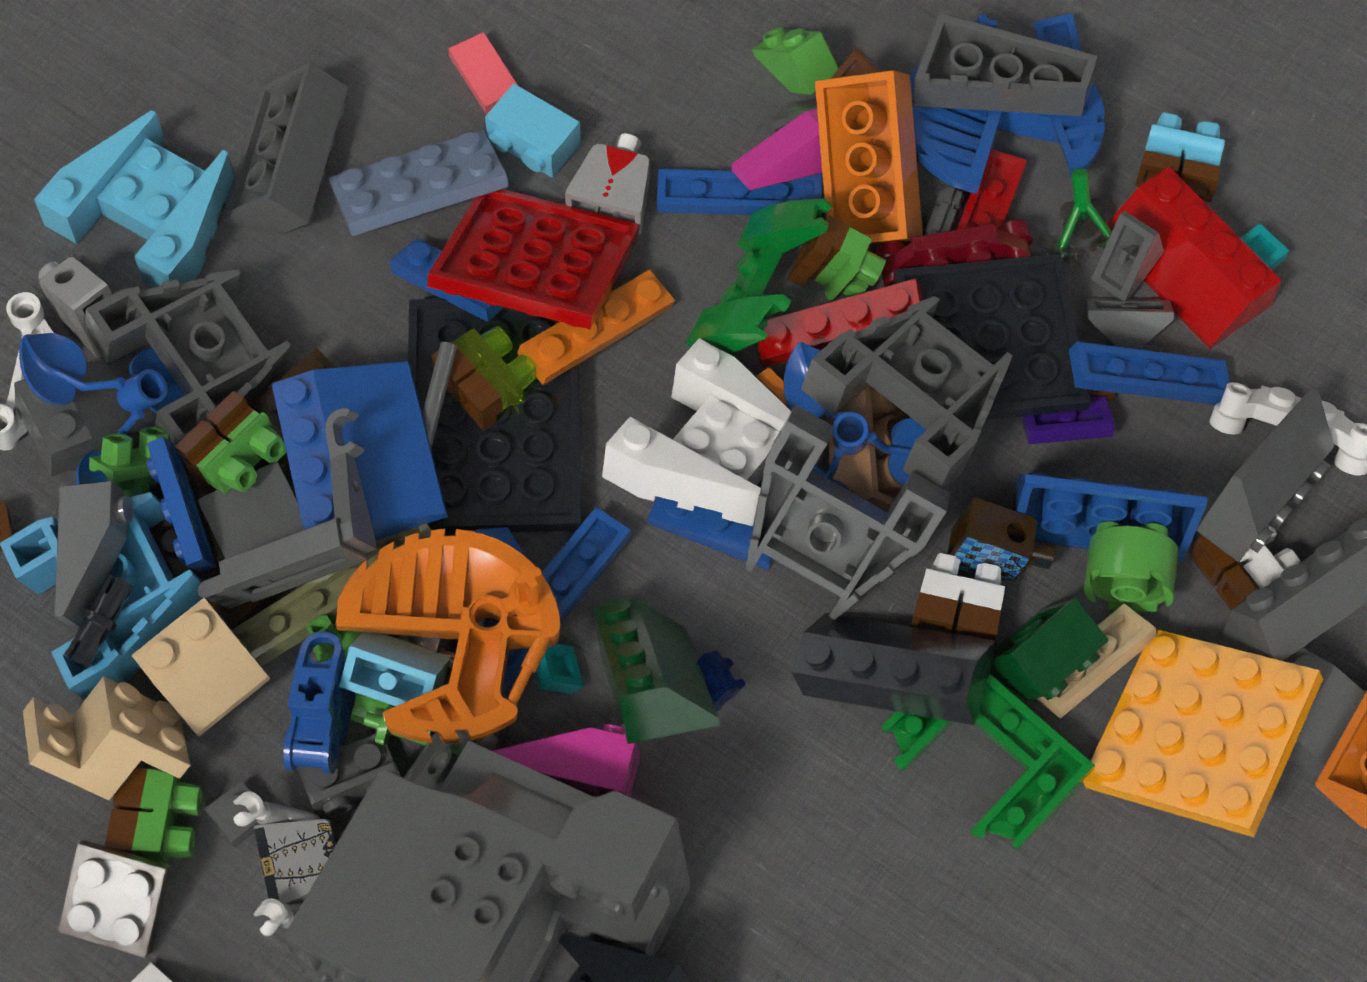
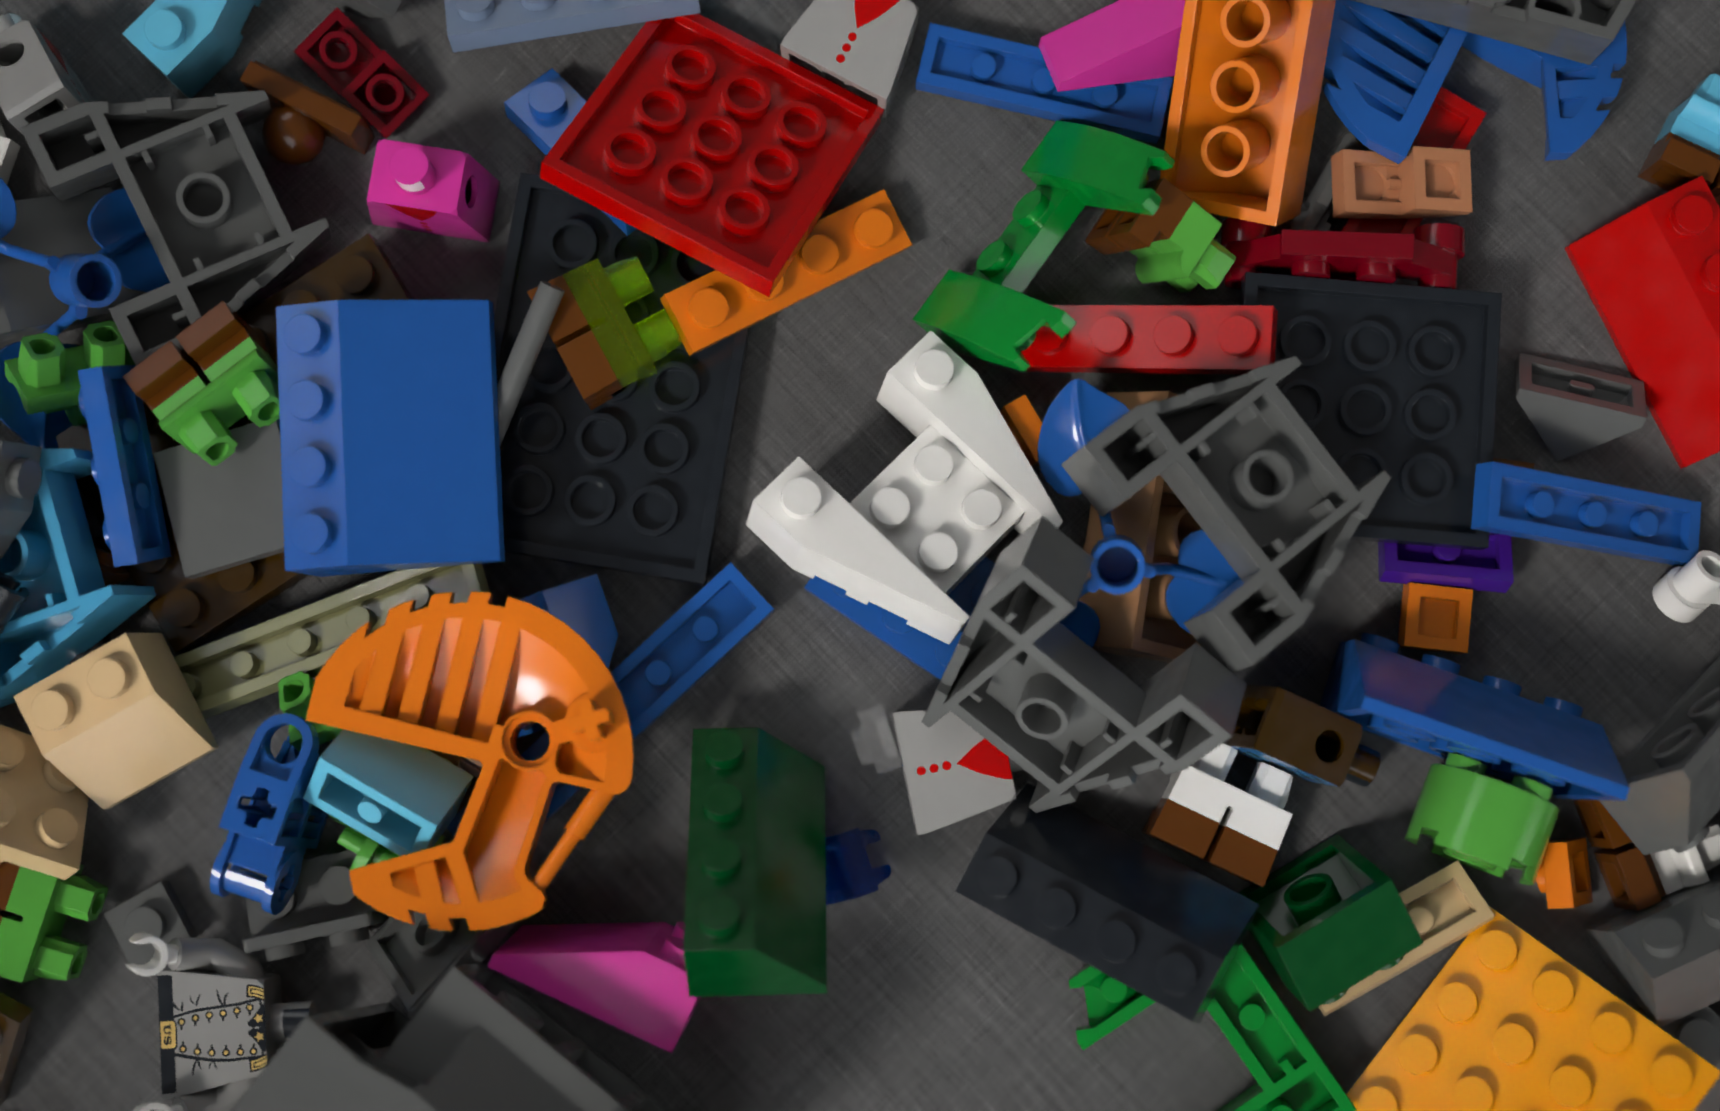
camera: 10 degrees right, 20 degrees up
(262, 291) = (303, 117): none -> reddish brown tile
(287, 264) = (361, 73): none -> dark red slope
(311, 551) = (346, 559): dark grey hinge -> none
(351, 318) = (425, 191): none -> dark pink torso
(559, 670) = (636, 808): teal plate -> none
(718, 600) = (875, 741): none -> clear plate
(773, 605) = (950, 770): none -> light grey torso
(994, 203) = (1424, 185): none -> nougat slope
(1071, 458) = (1435, 618): none -> orange plate
(1081, 217) = (1544, 225): plant -> none
(1127, 256) = (1598, 315): dark grey slope -> none
(1196, 598) = (1565, 874): none -> orange plate

